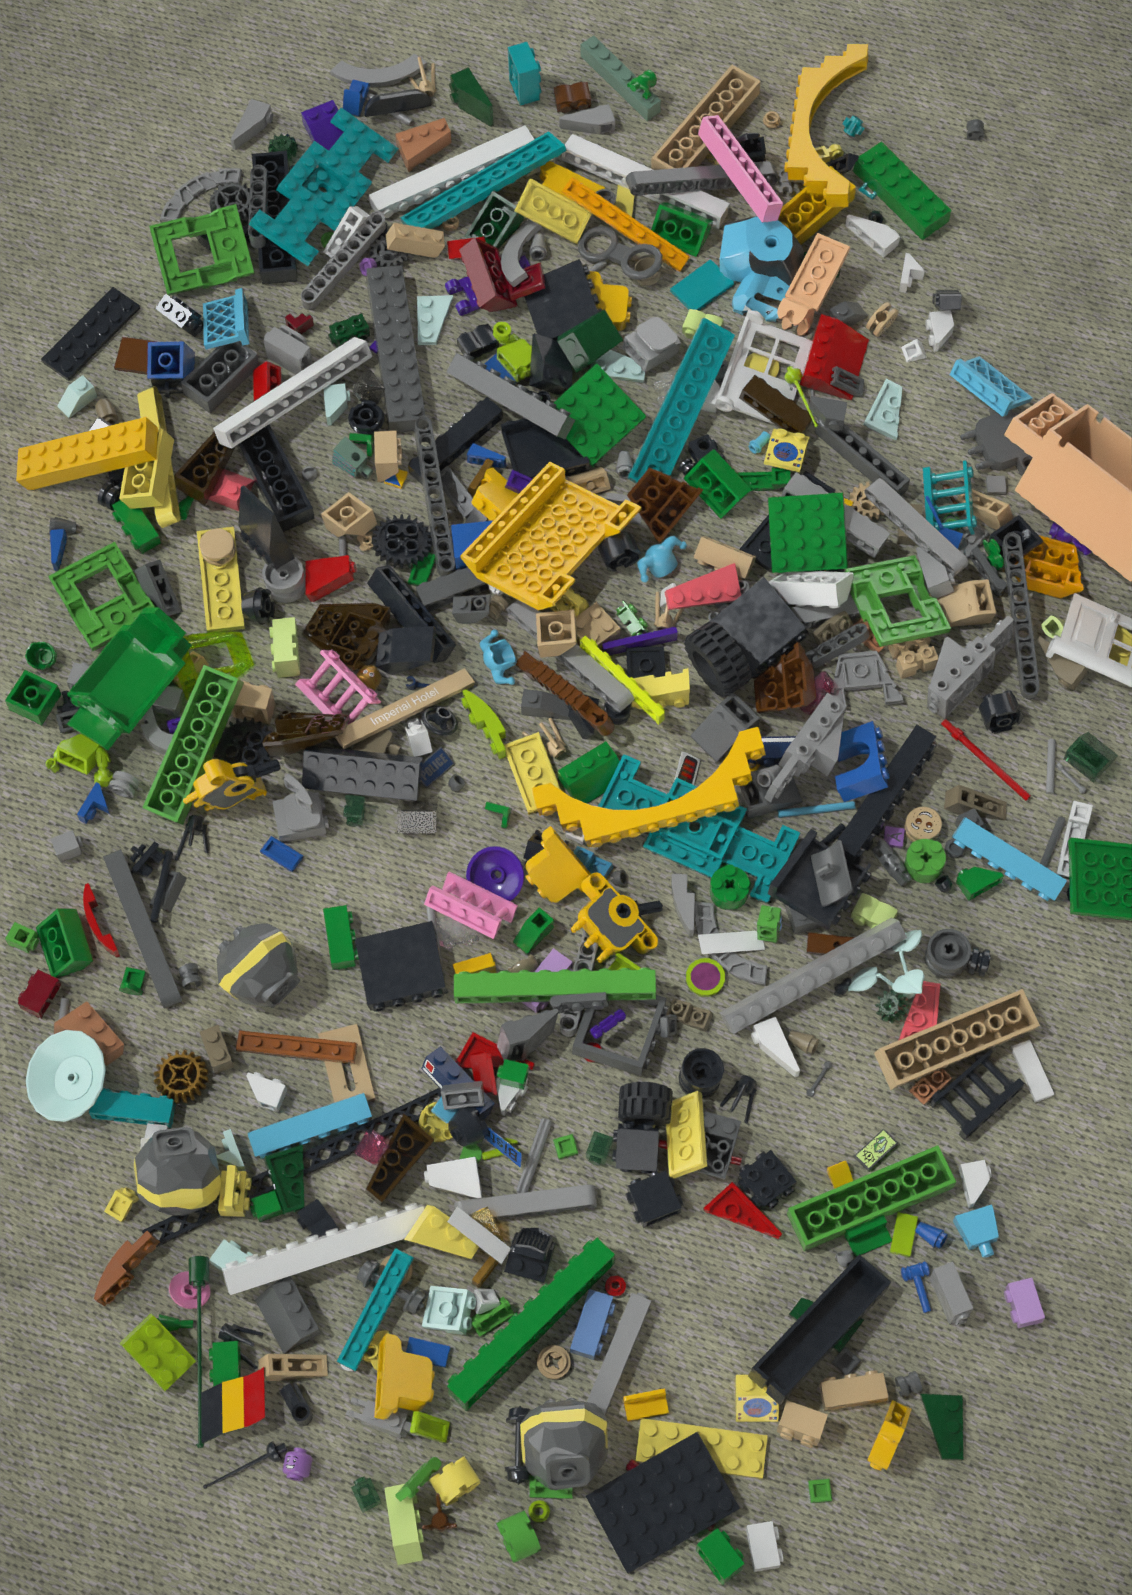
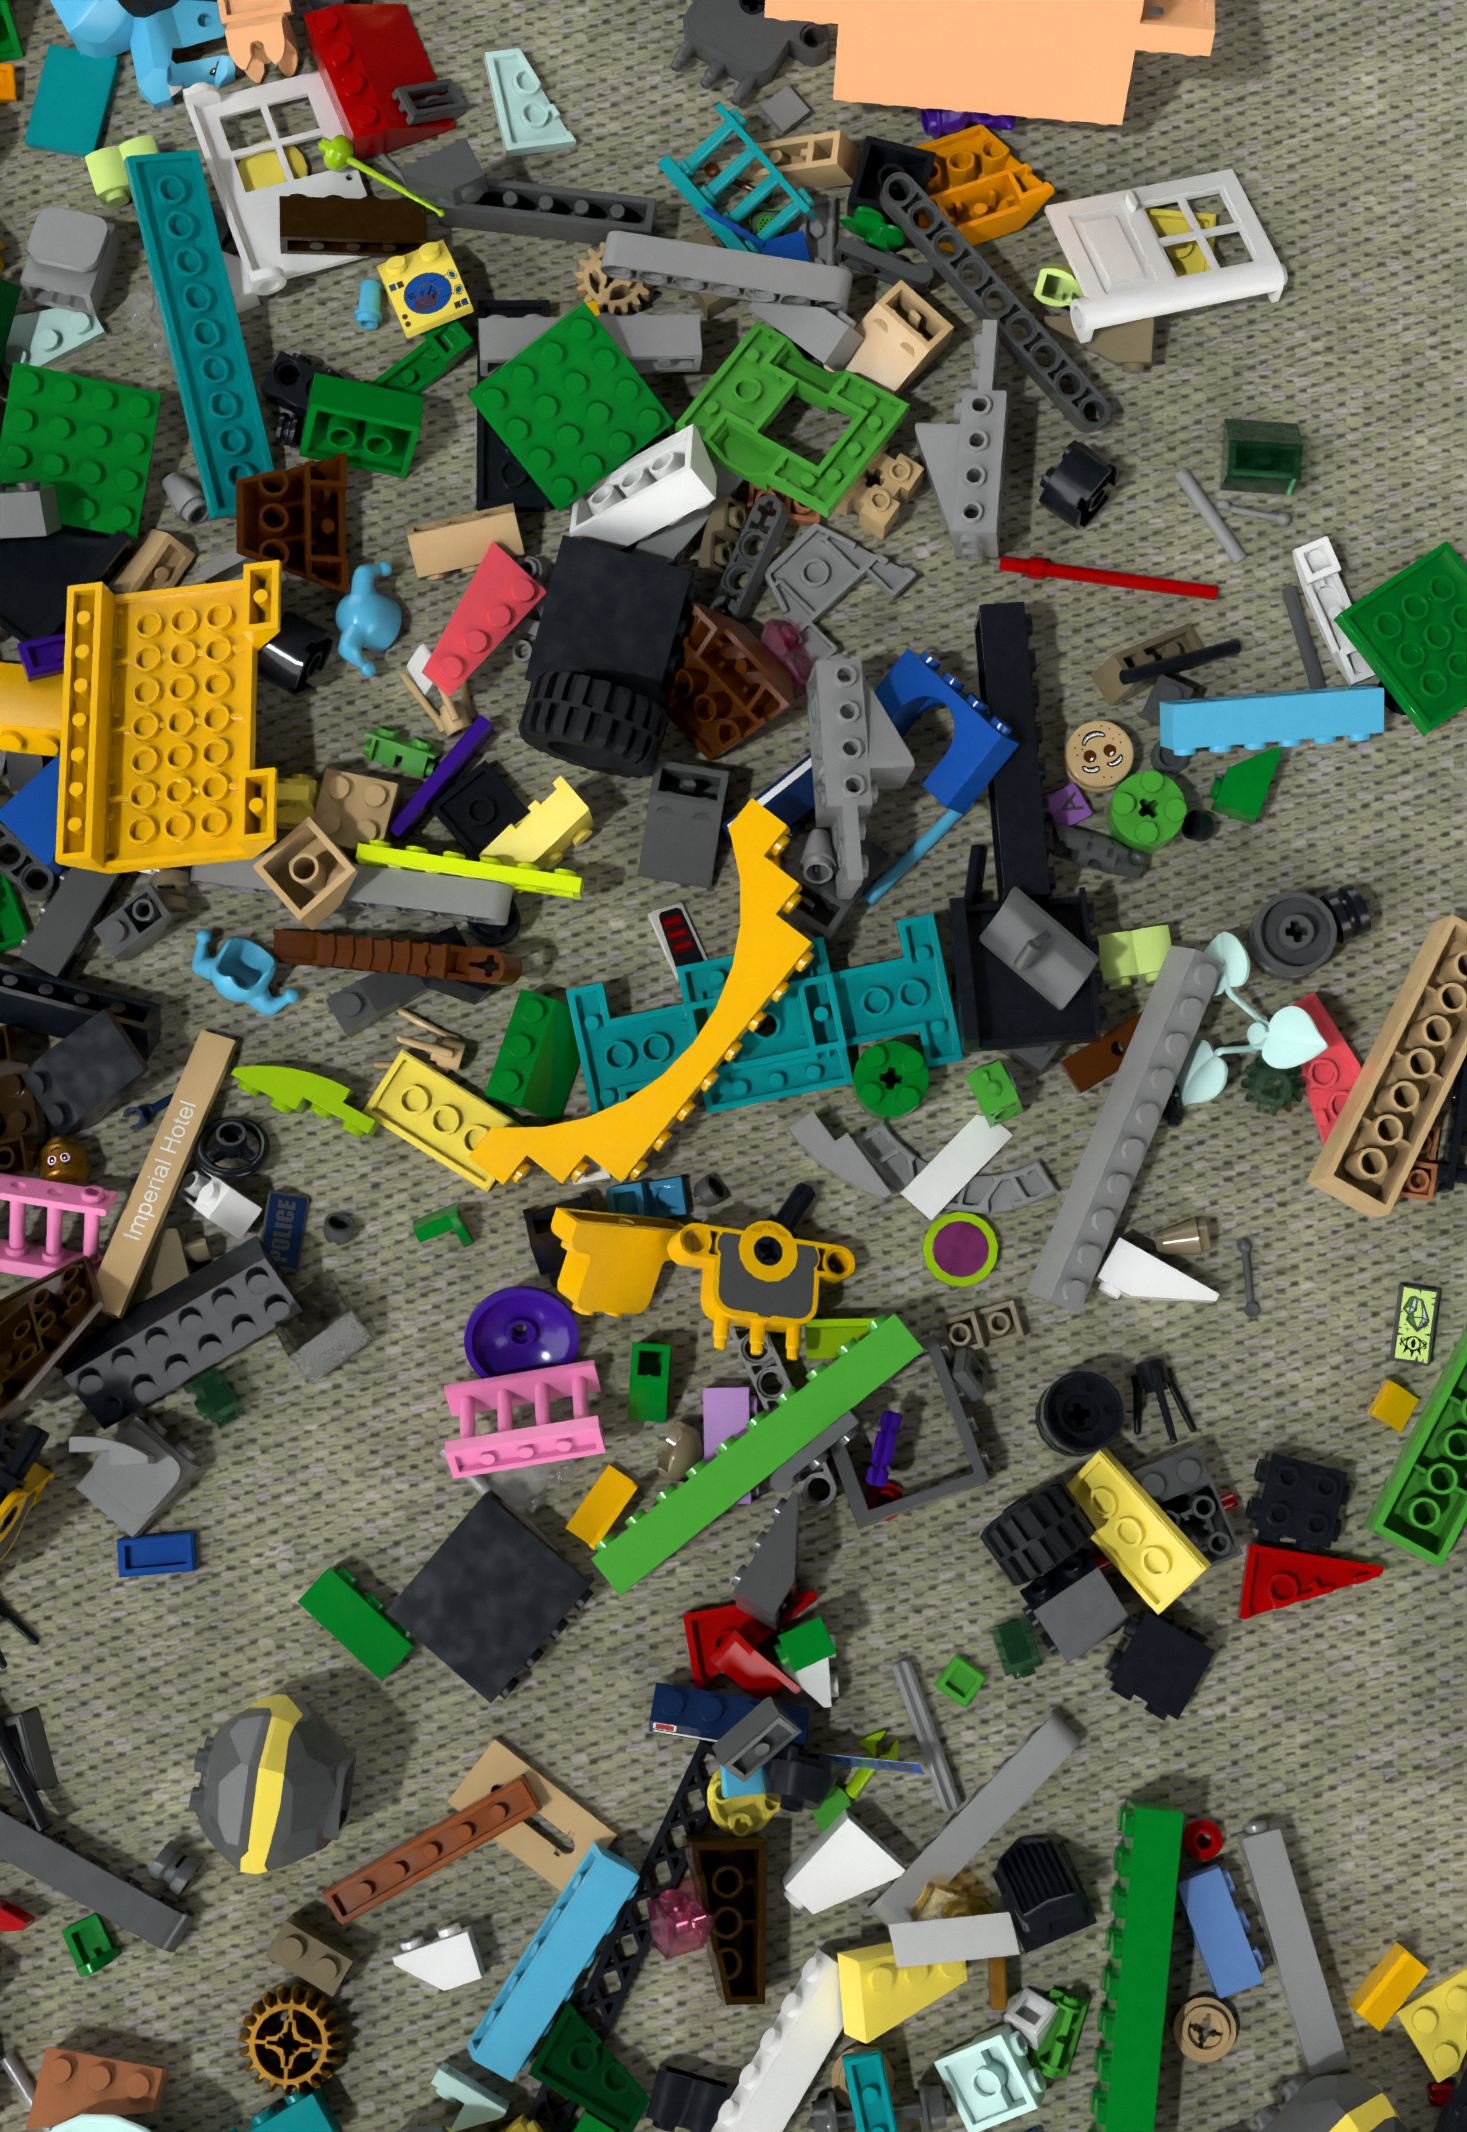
camera: 35 degrees left, 15 degrees up
(987, 810) = (1179, 661): none -> black bar

